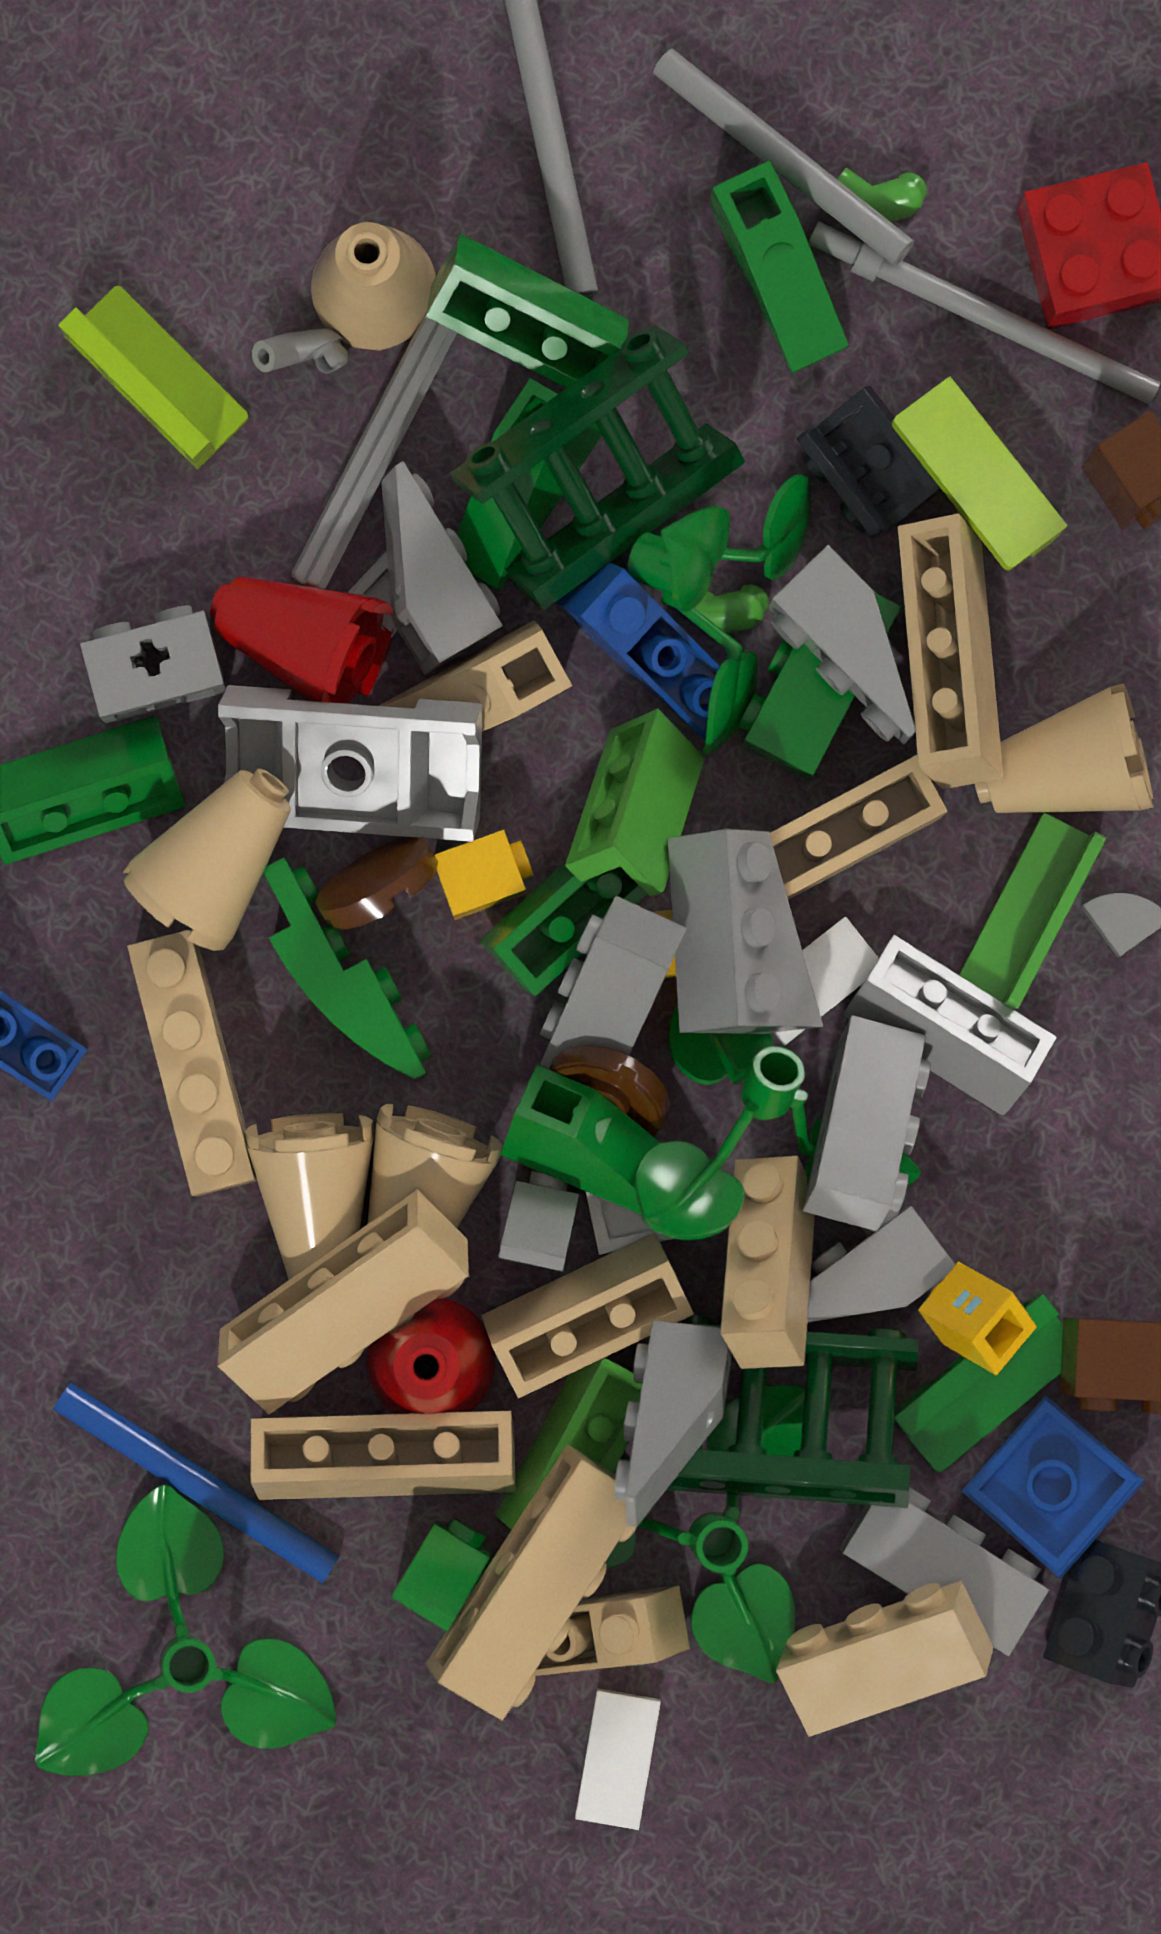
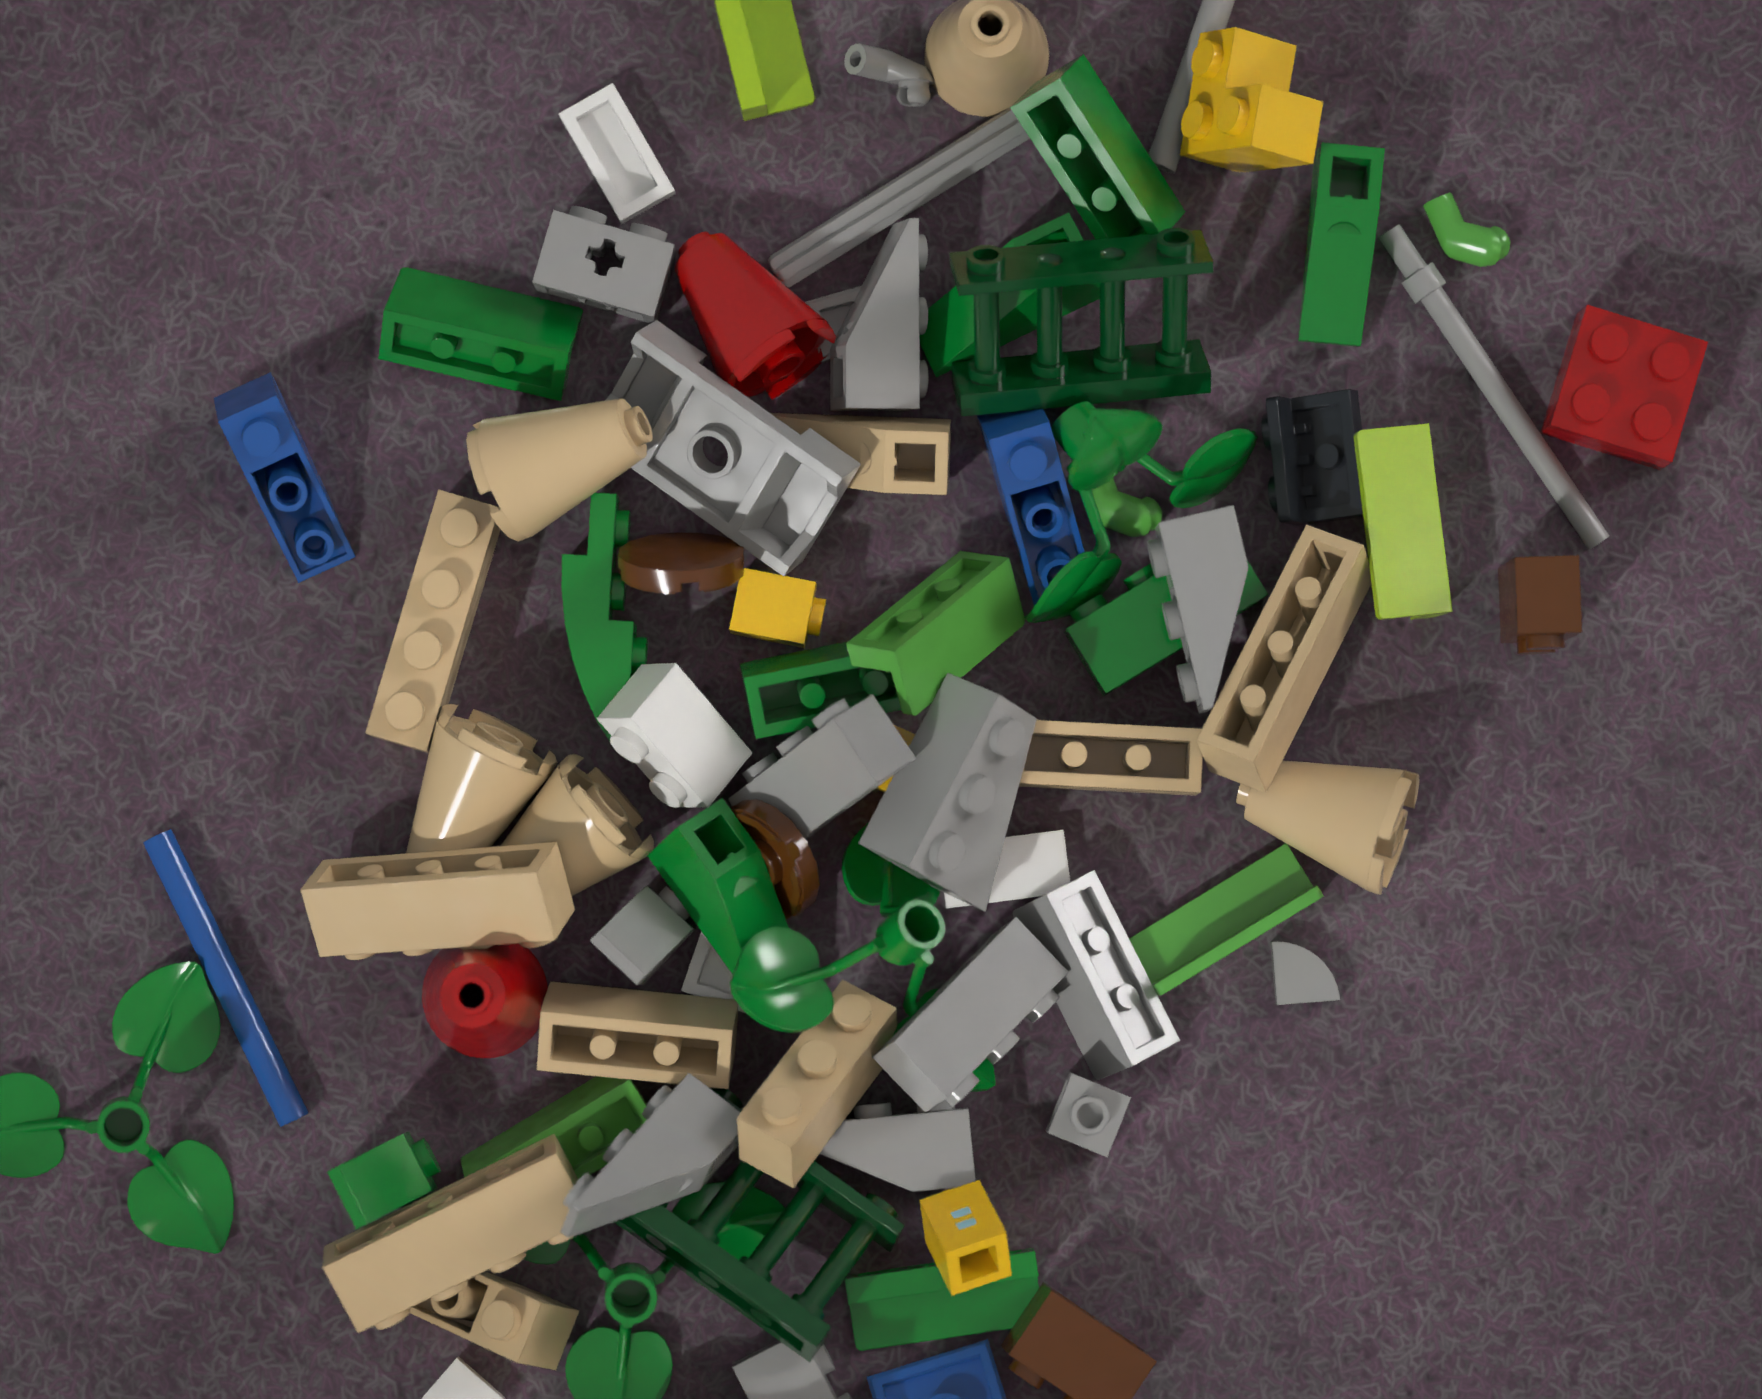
camera: 35 degrees right, 0 degrees up
(104, 563) = (617, 153): none -> white tile
(383, 1455) = (395, 1049): tan brick -> none
(461, 1037) = (674, 736): none -> white brick
(624, 198) = (1243, 105): none -> yellow brick
(784, 156) = (1401, 152): light grey piece -> none
(1015, 1148) = (1087, 1114): none -> light grey brick

